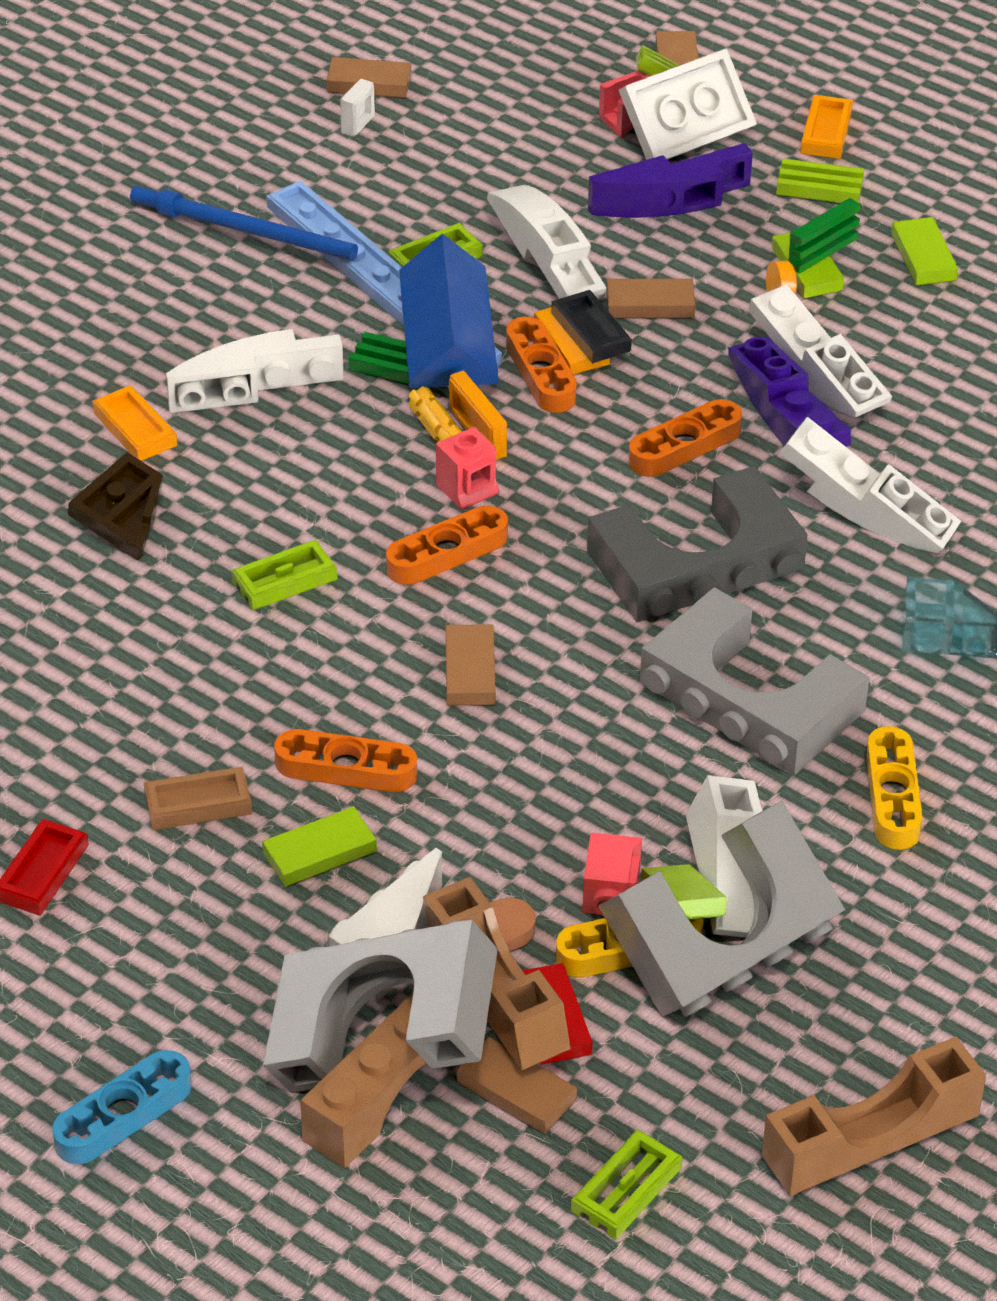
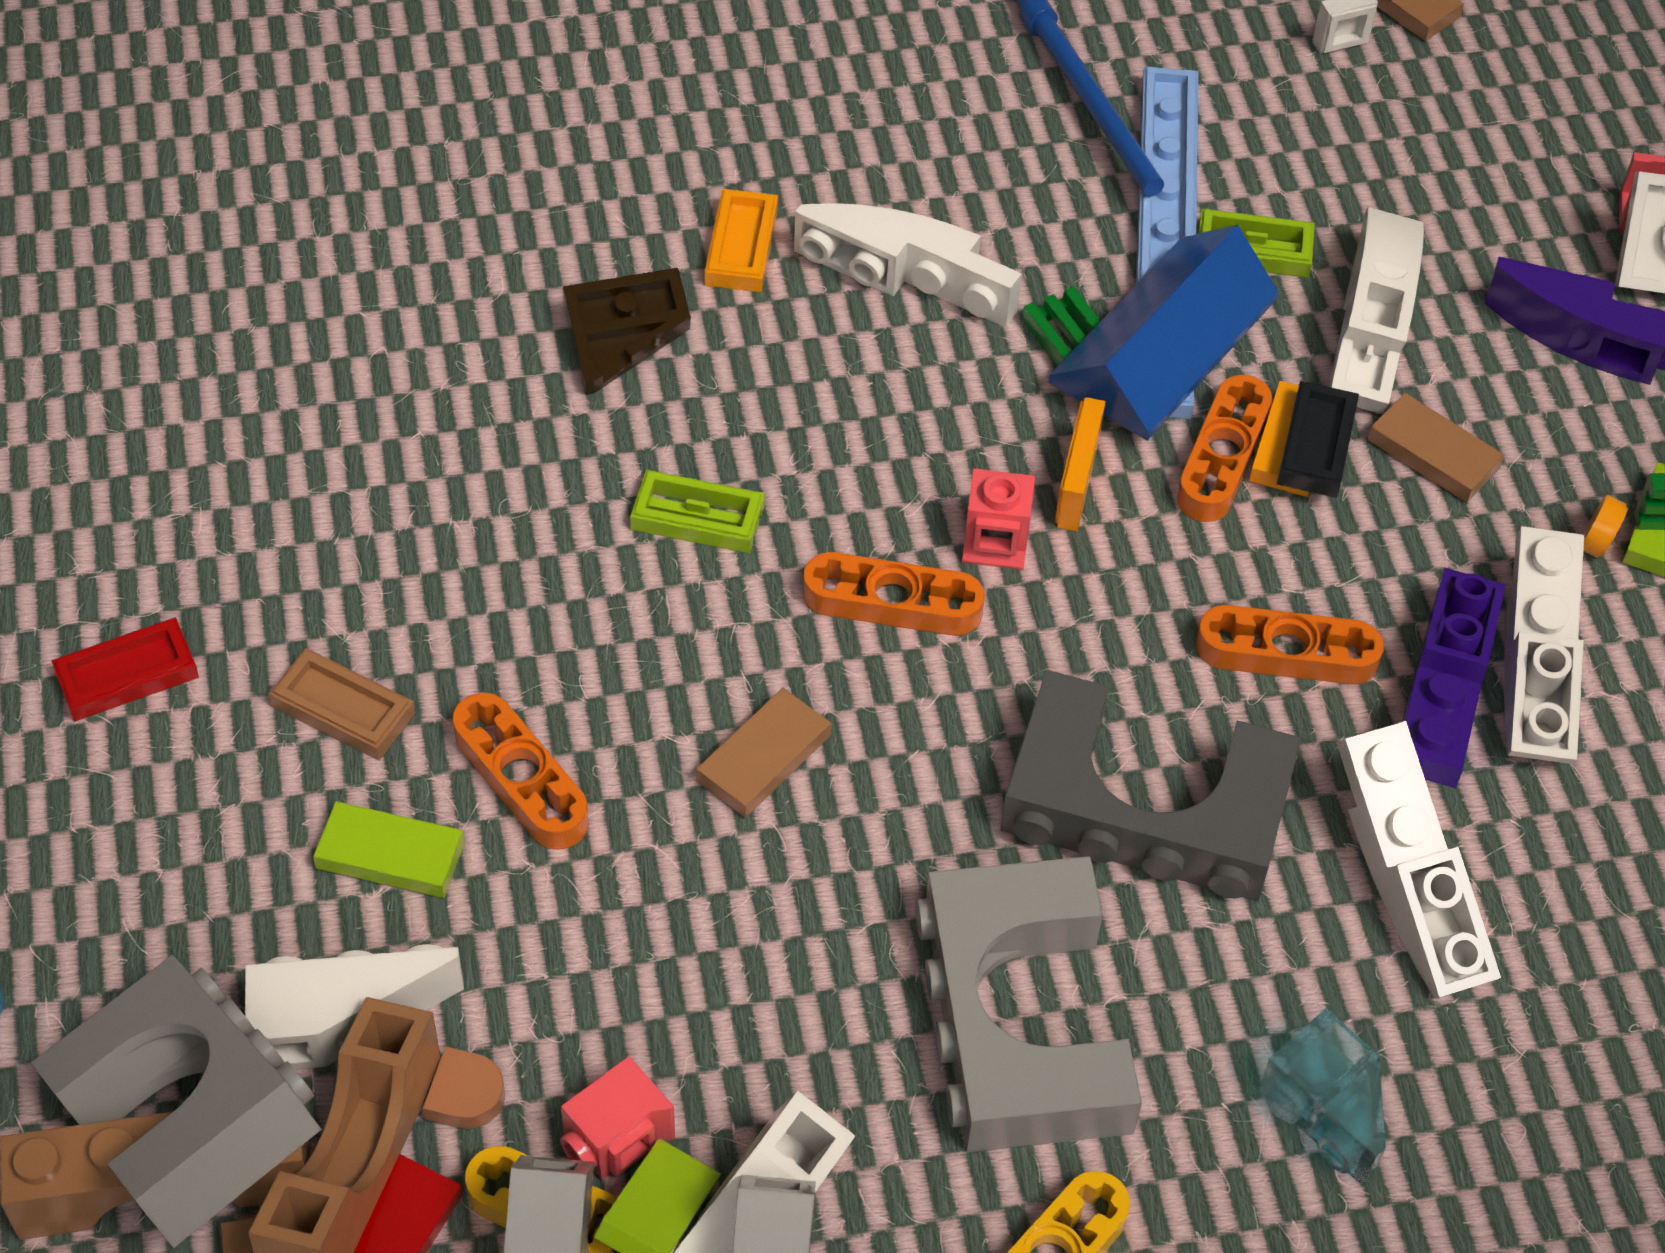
camera: 40 degrees right, 10 degrees up
(432, 414) = (1042, 436): yellow axle -> none

